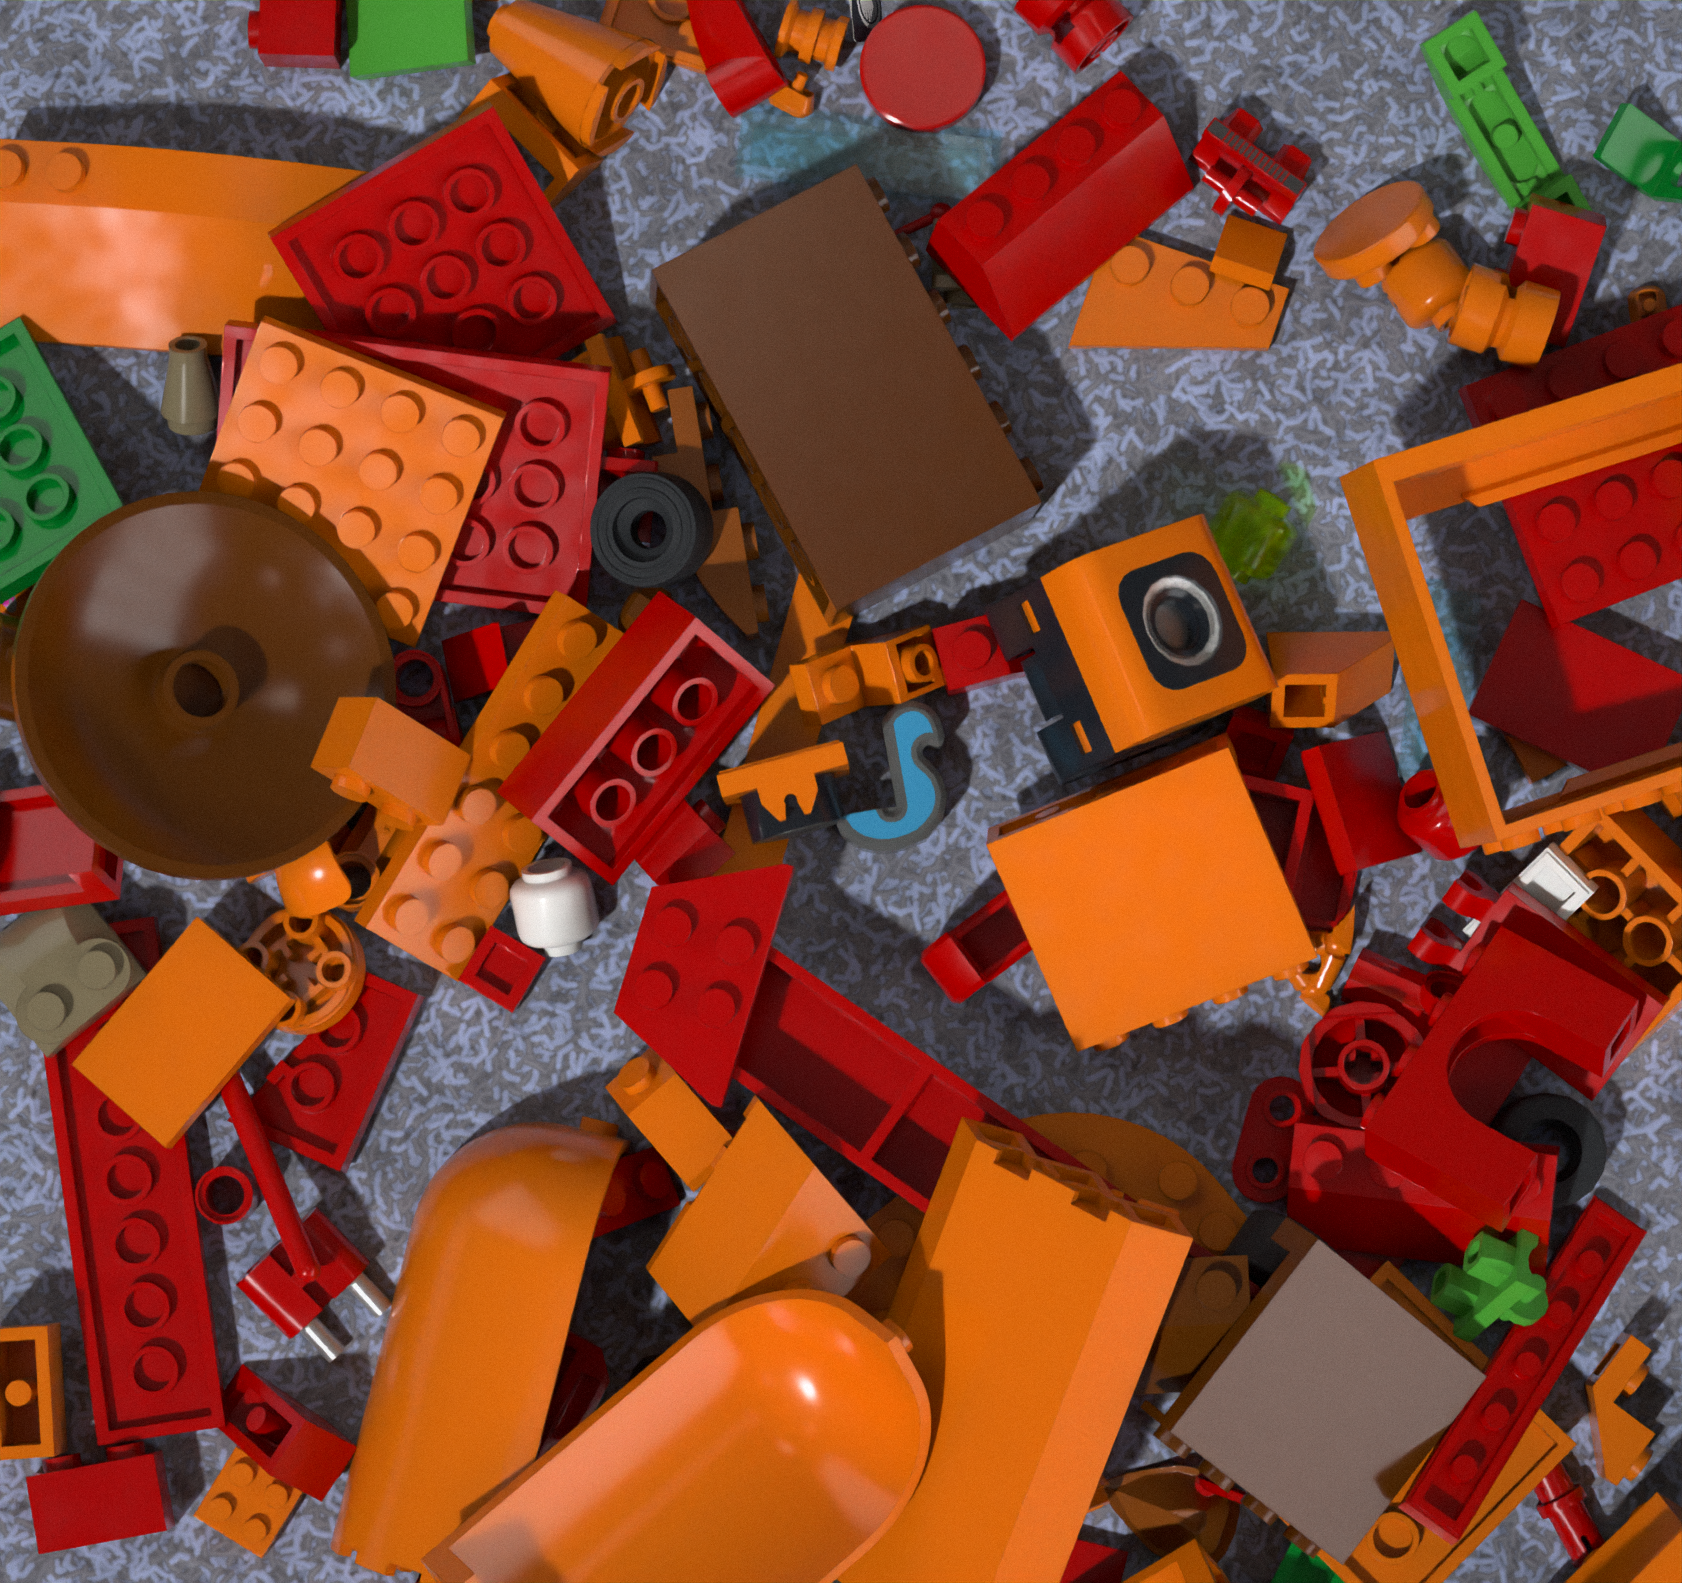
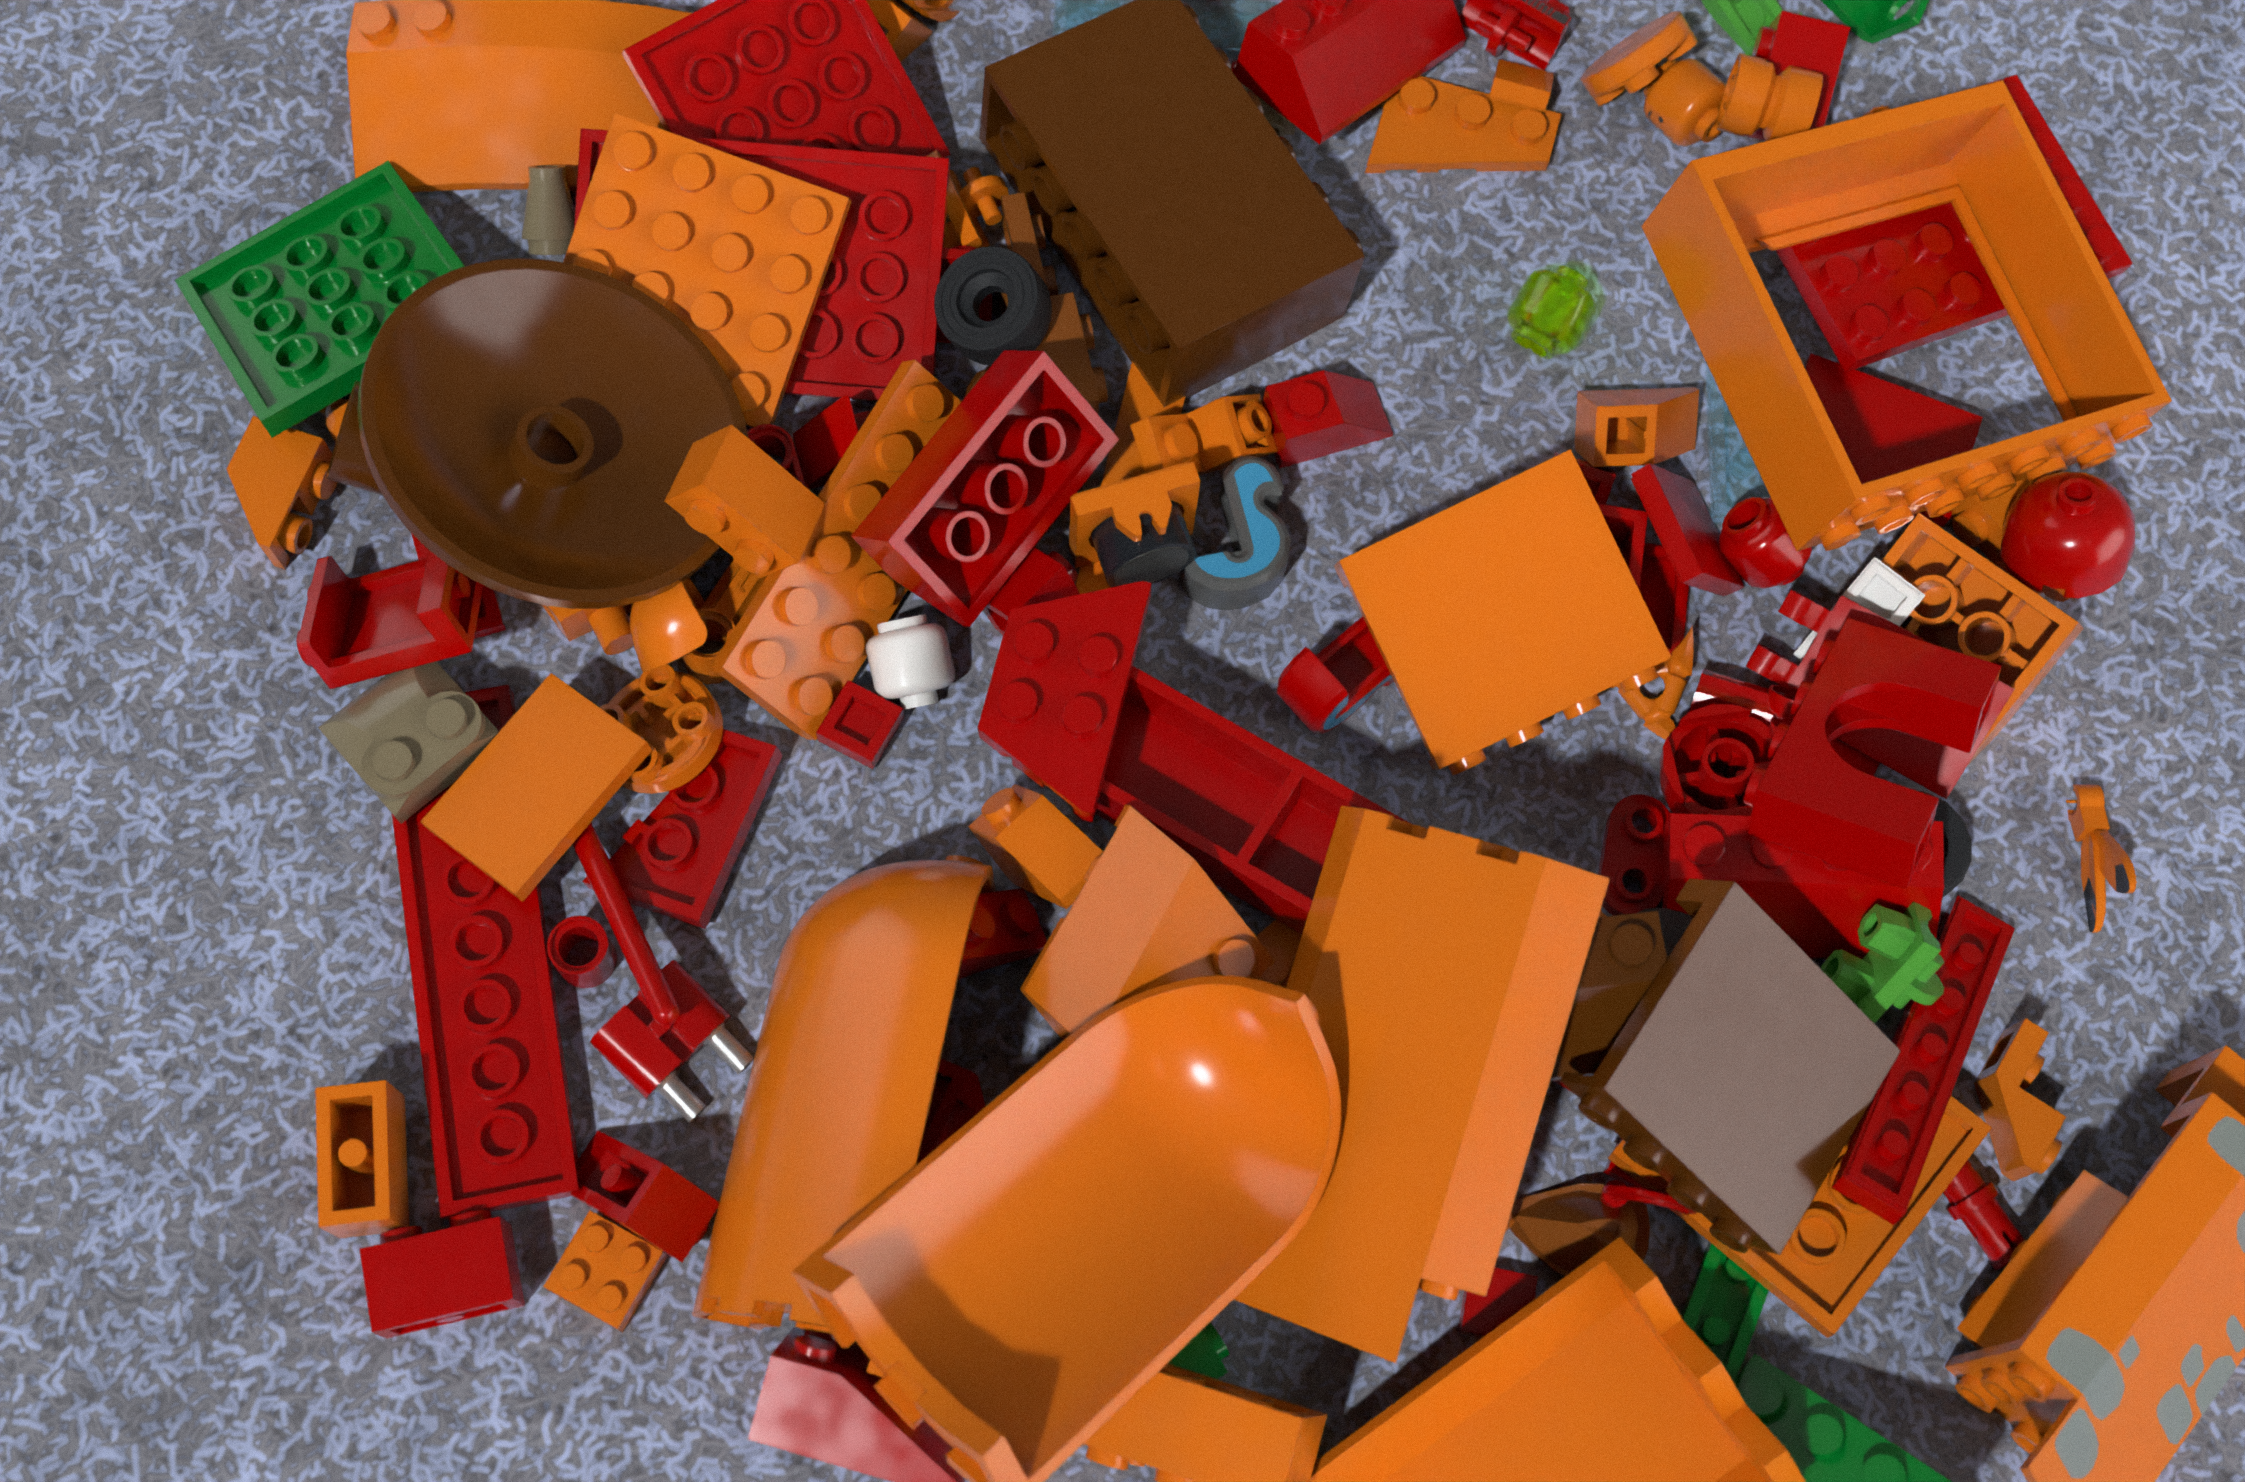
camera: 15 degrees left, 15 degrees down
(1132, 647) = (1460, 378): piece -> none

